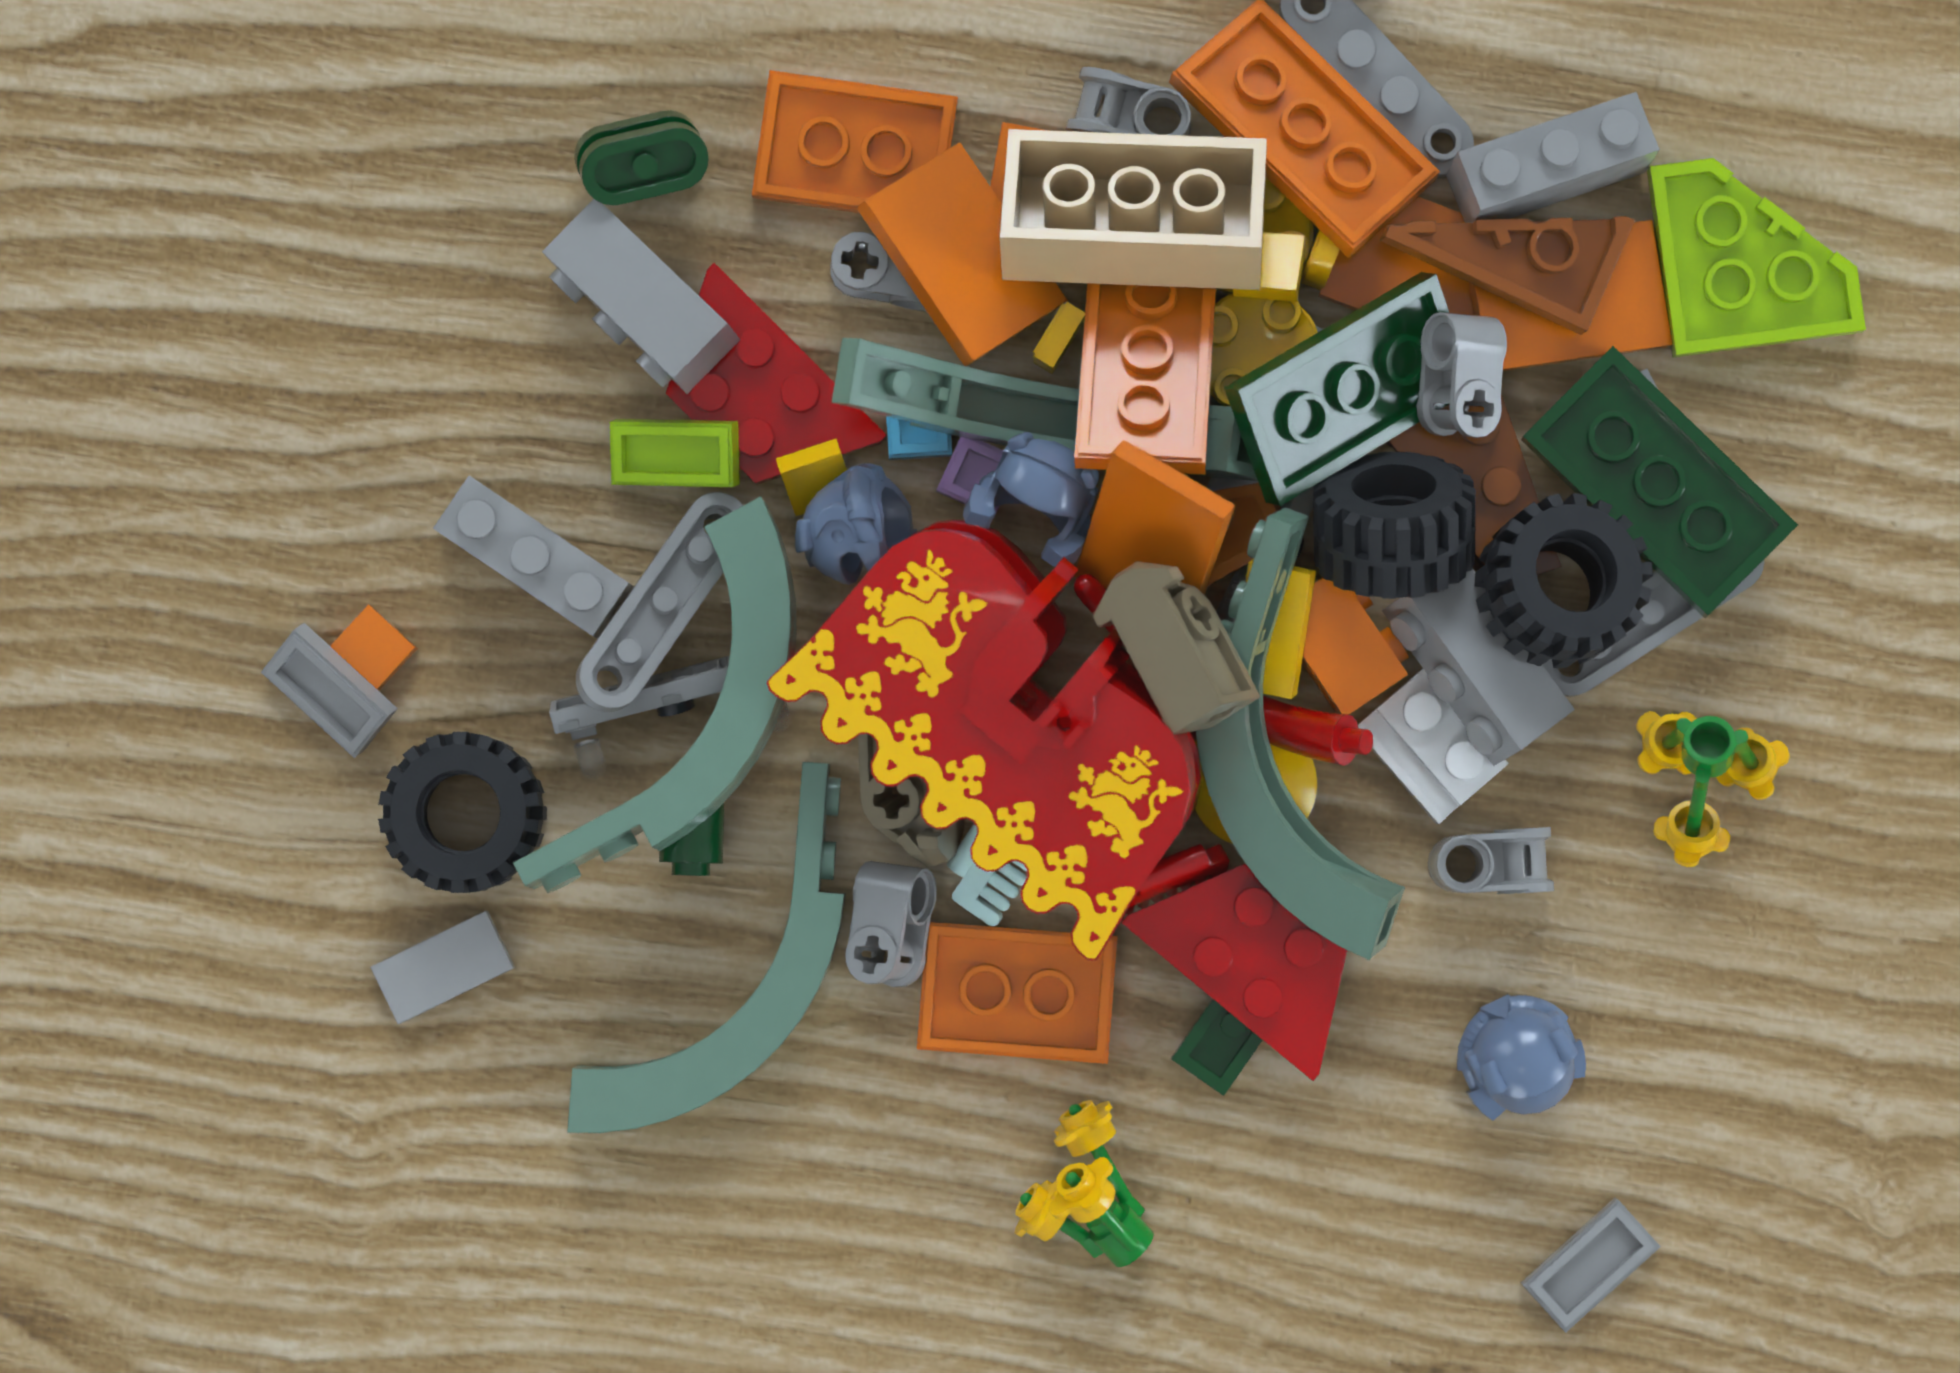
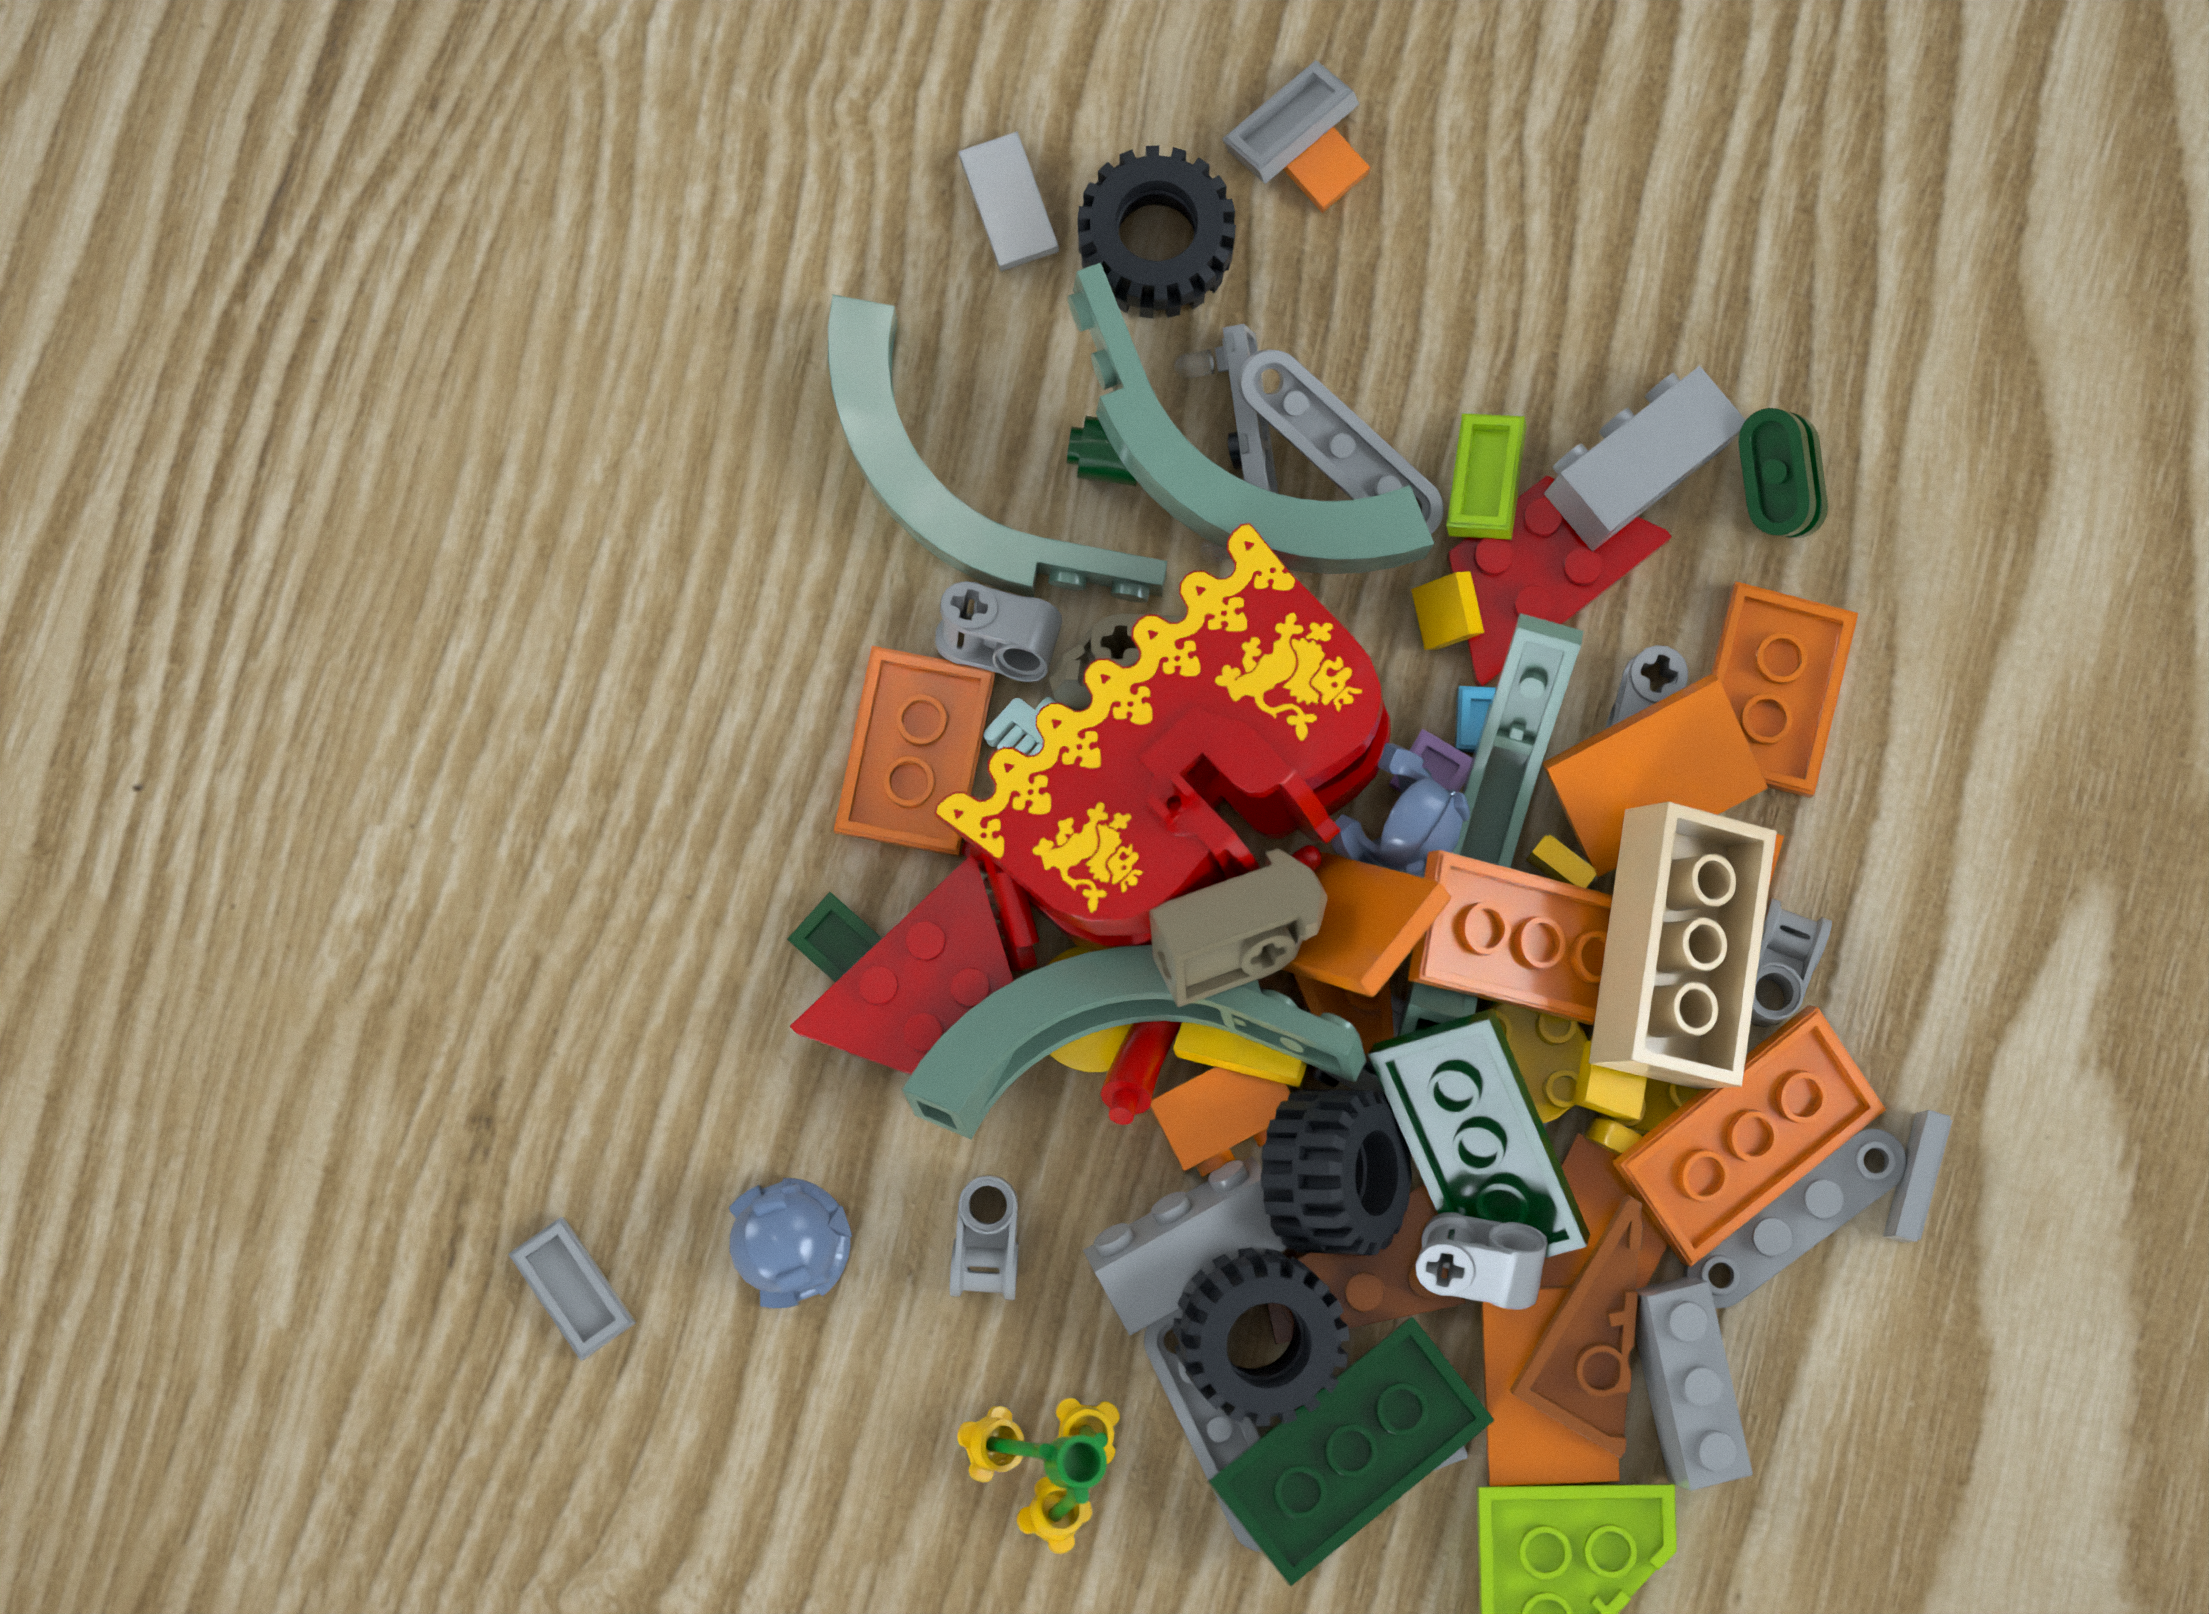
camera: 95 degrees right, 5 degrees down
(533, 557) = (1400, 324): light grey brick -> none
(853, 523) = (1401, 637): sand blue helmet -> none
(1087, 1193) = (705, 784): yellow plant -> none
(1428, 748) = (1108, 1186): white plate -> none

